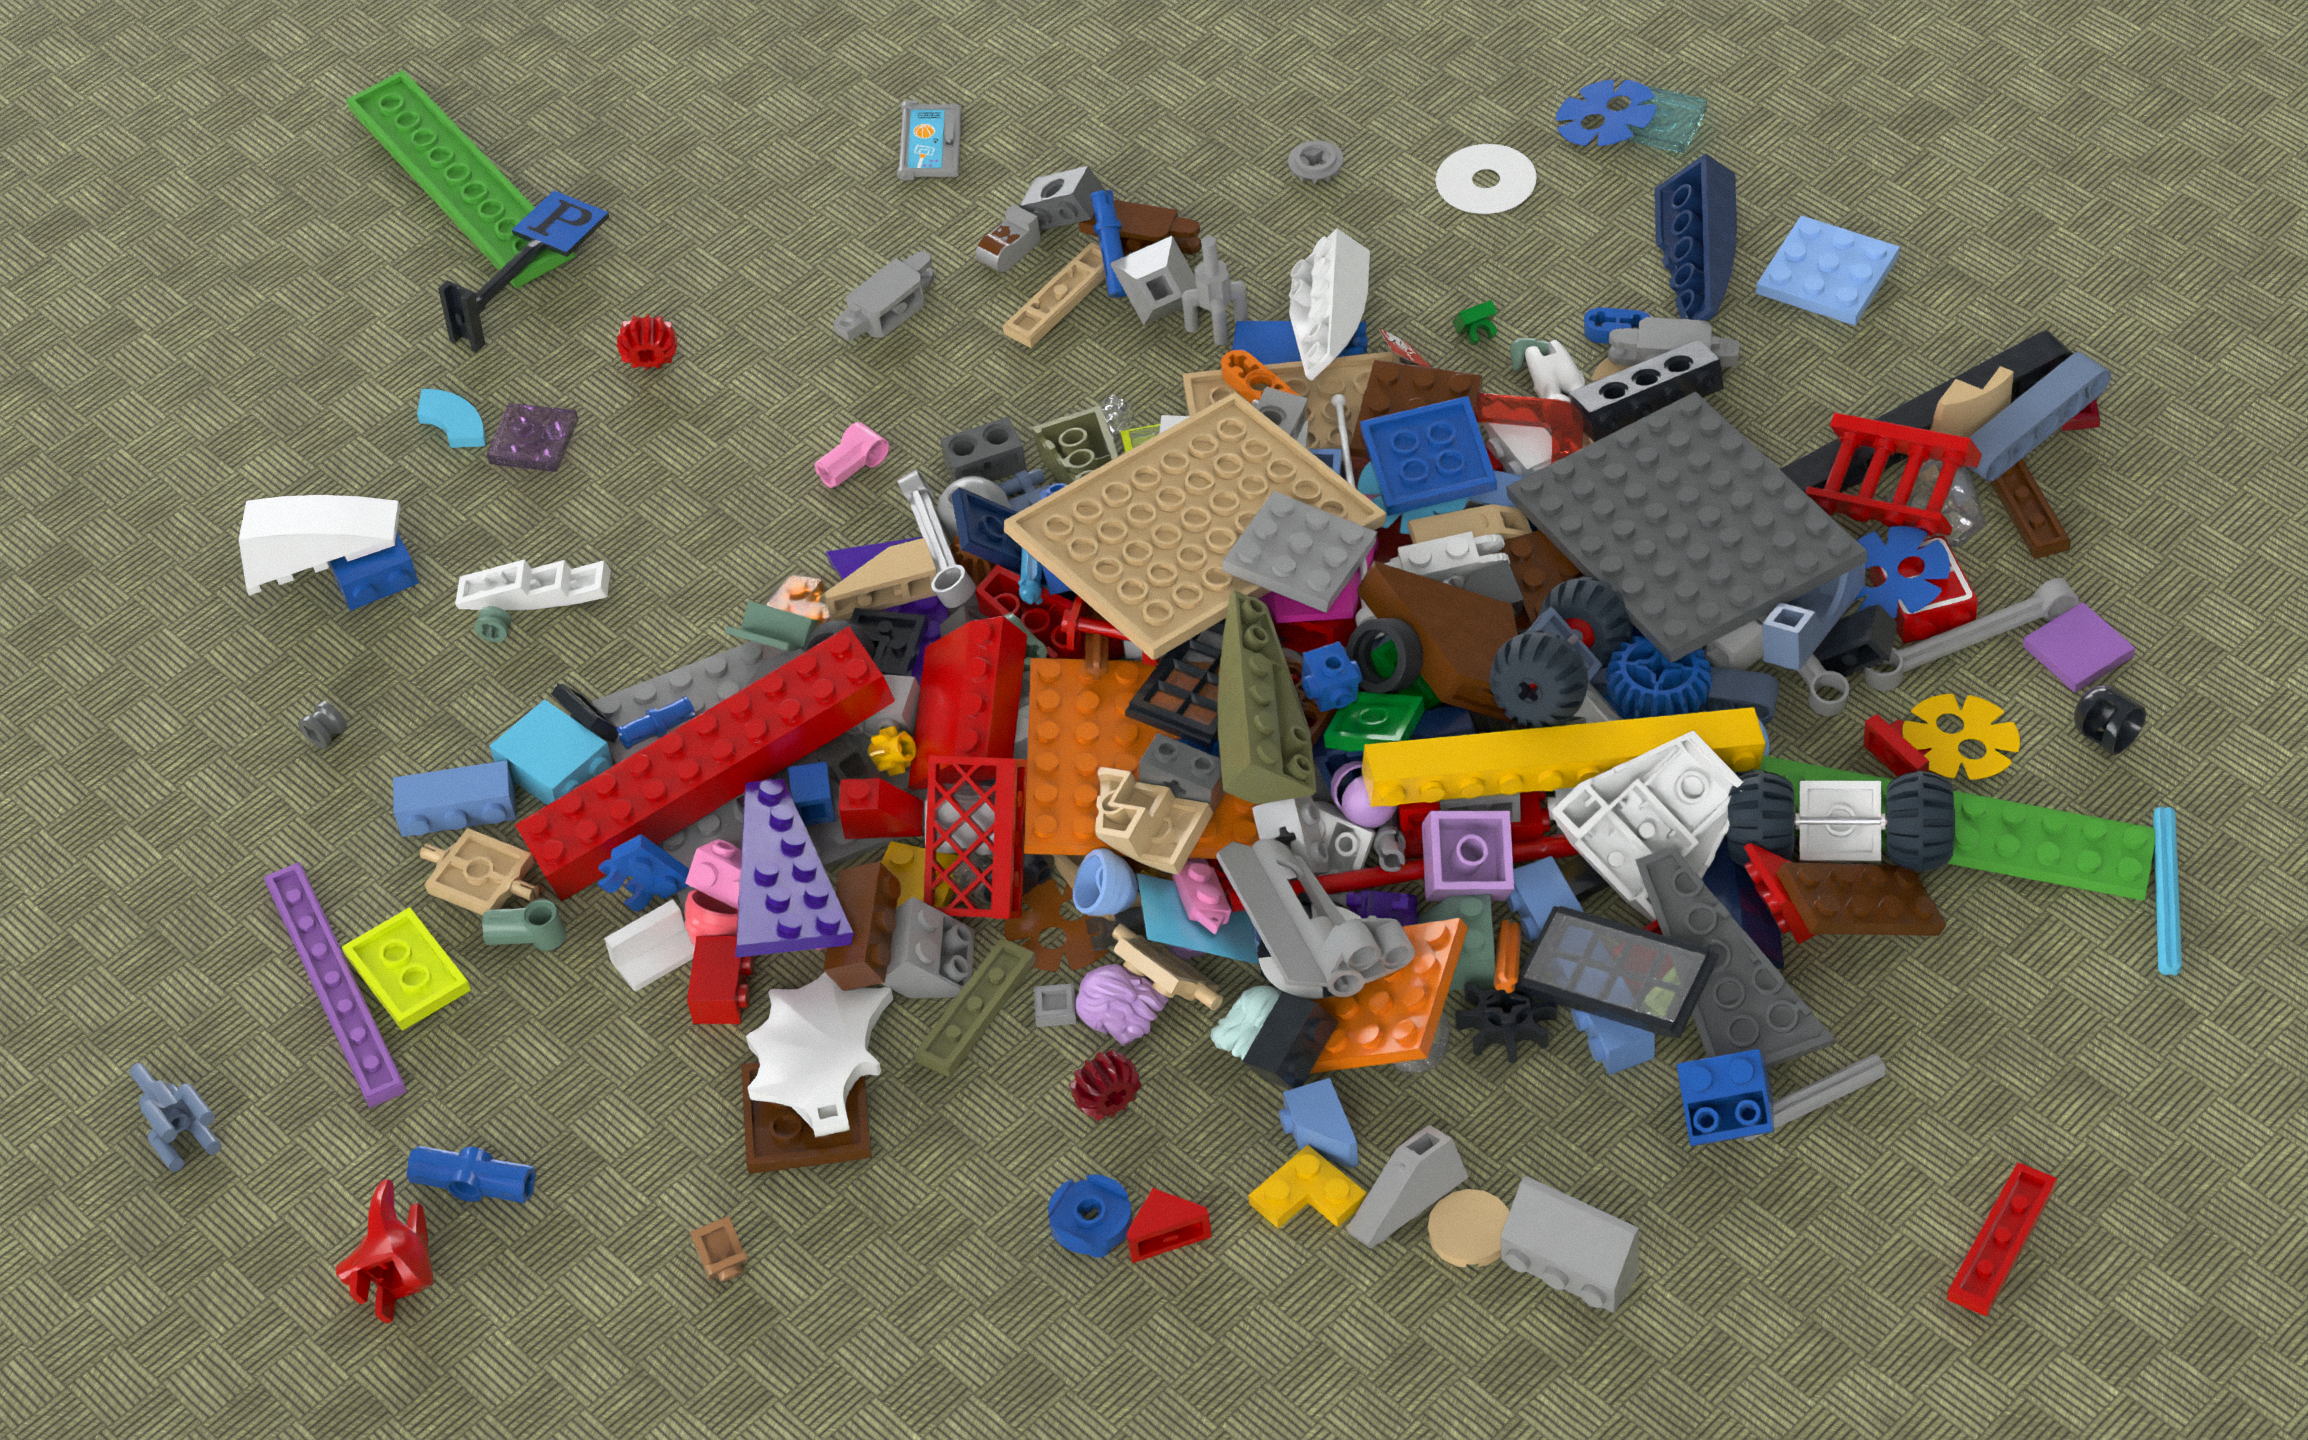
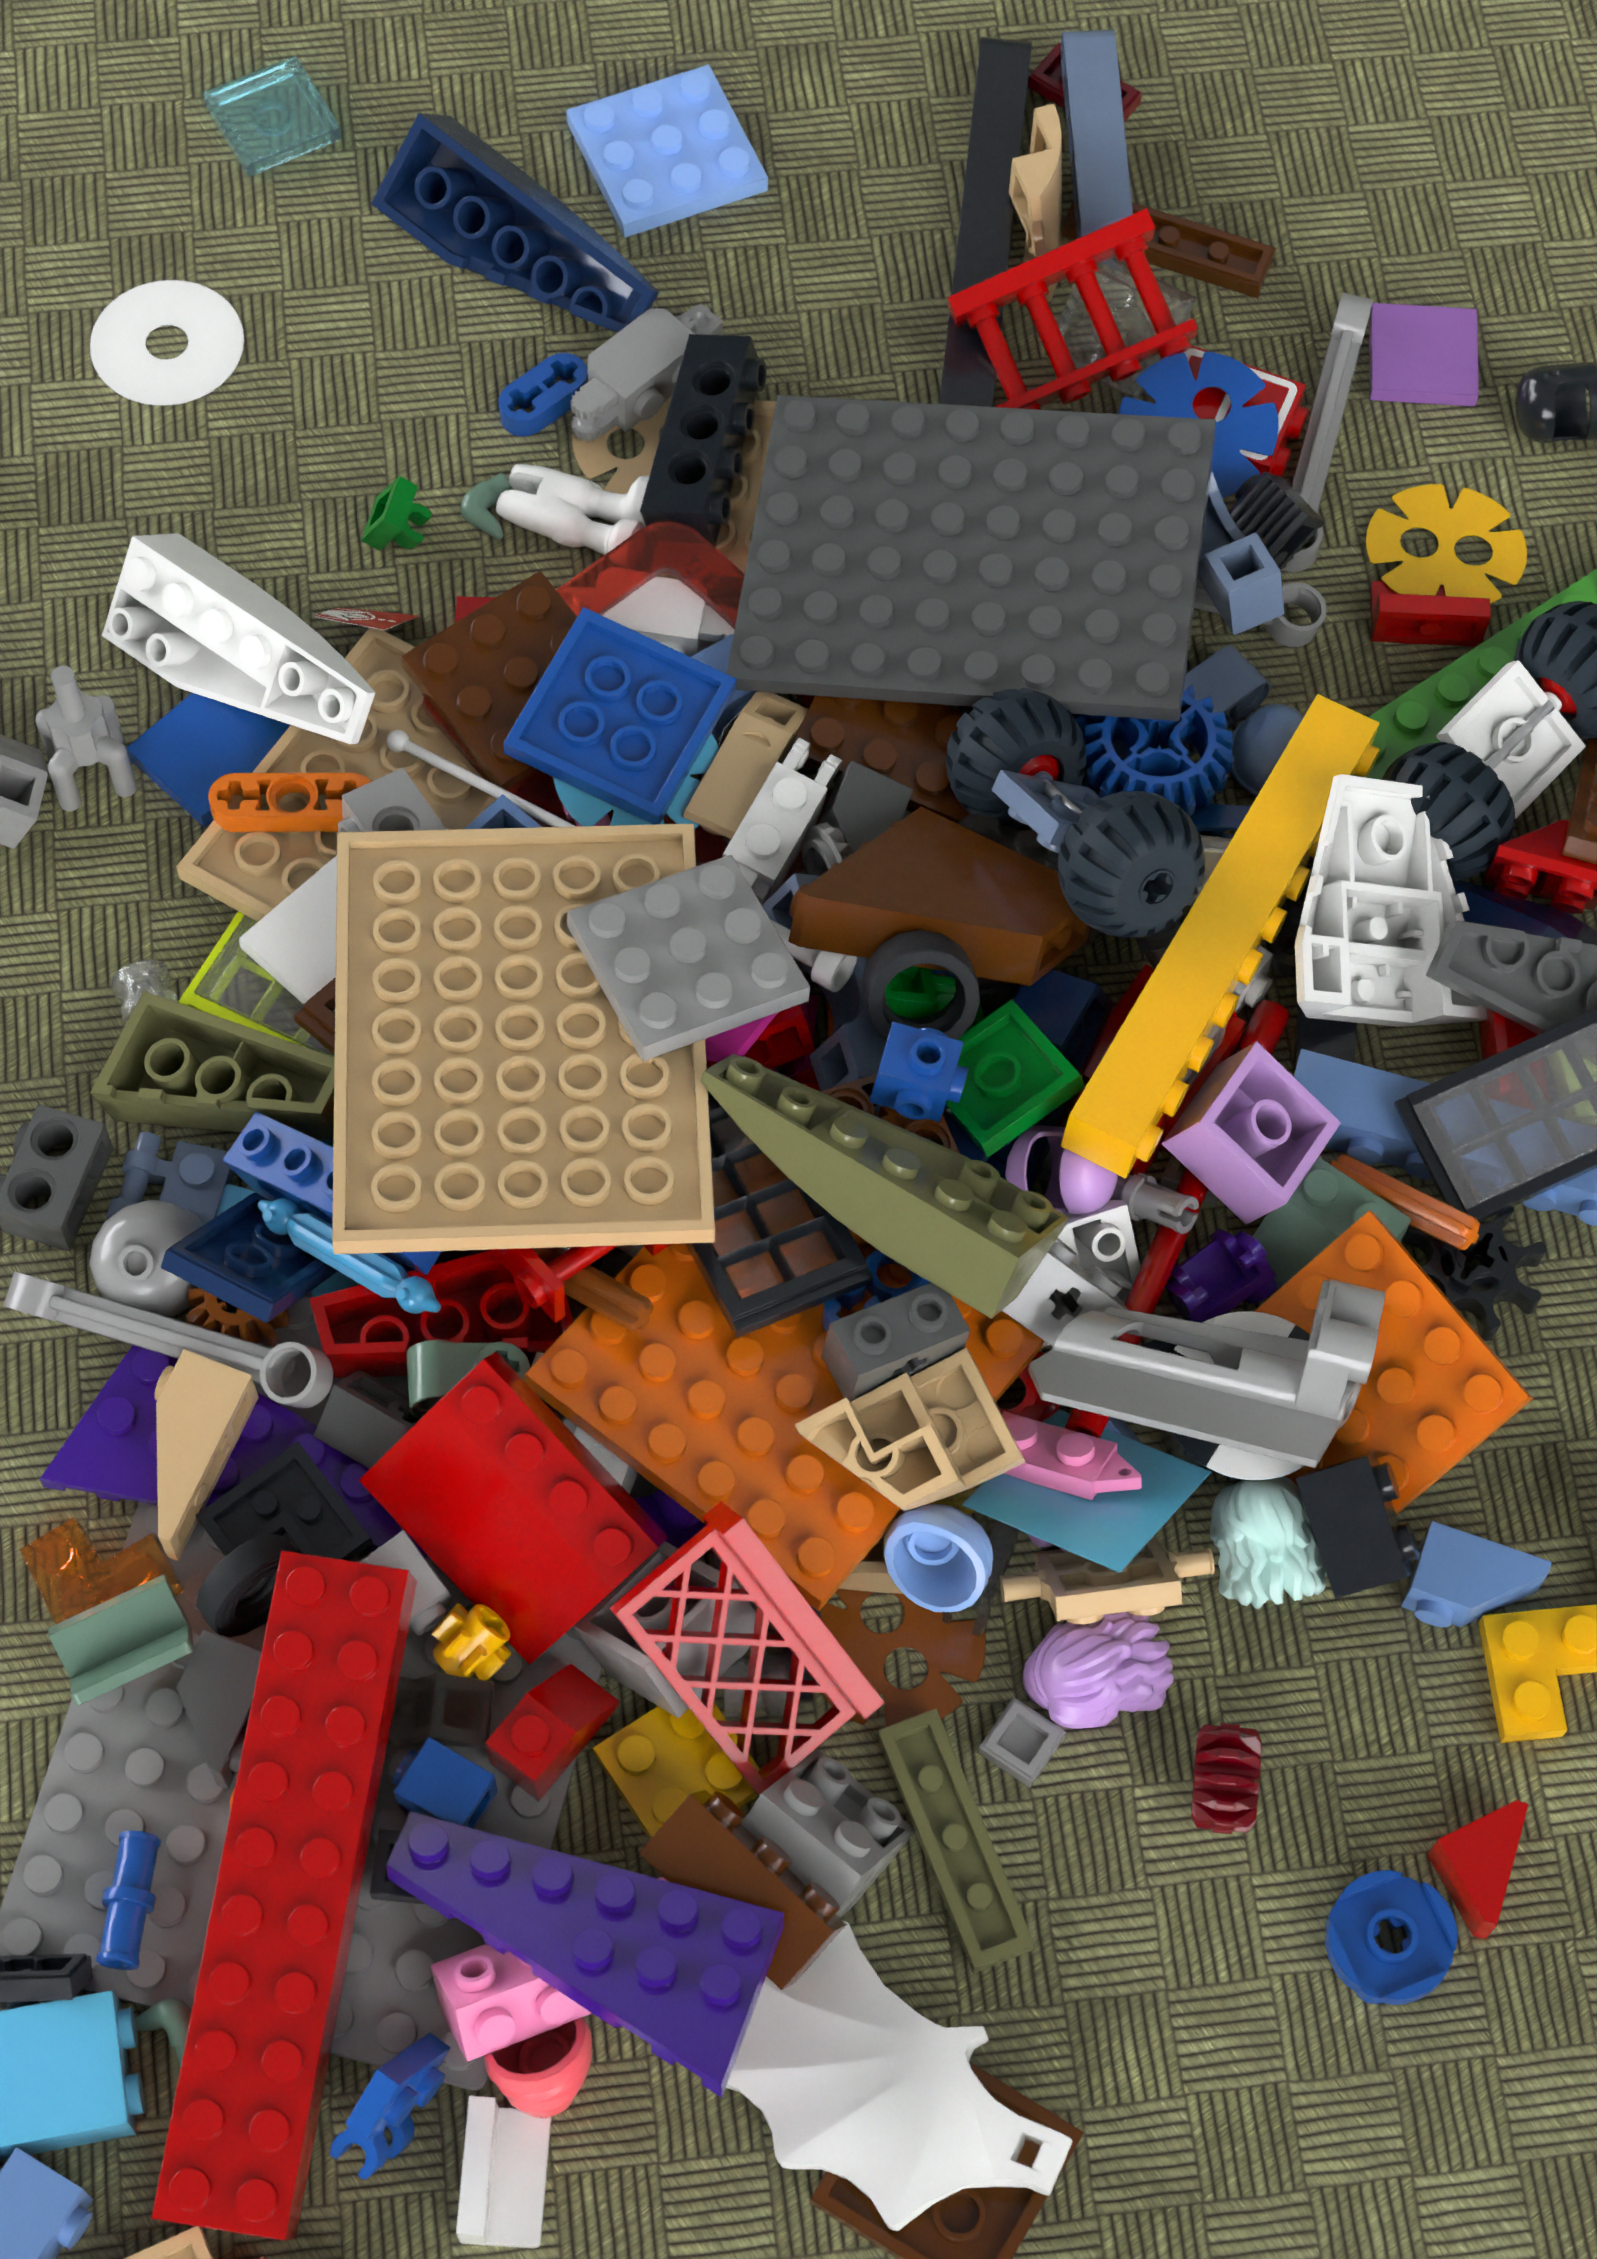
camera: 60 degrees left, 15 degrees up
(718, 981) = (639, 2125): red brick -> none
(1614, 127) = (239, 170): piece -> none

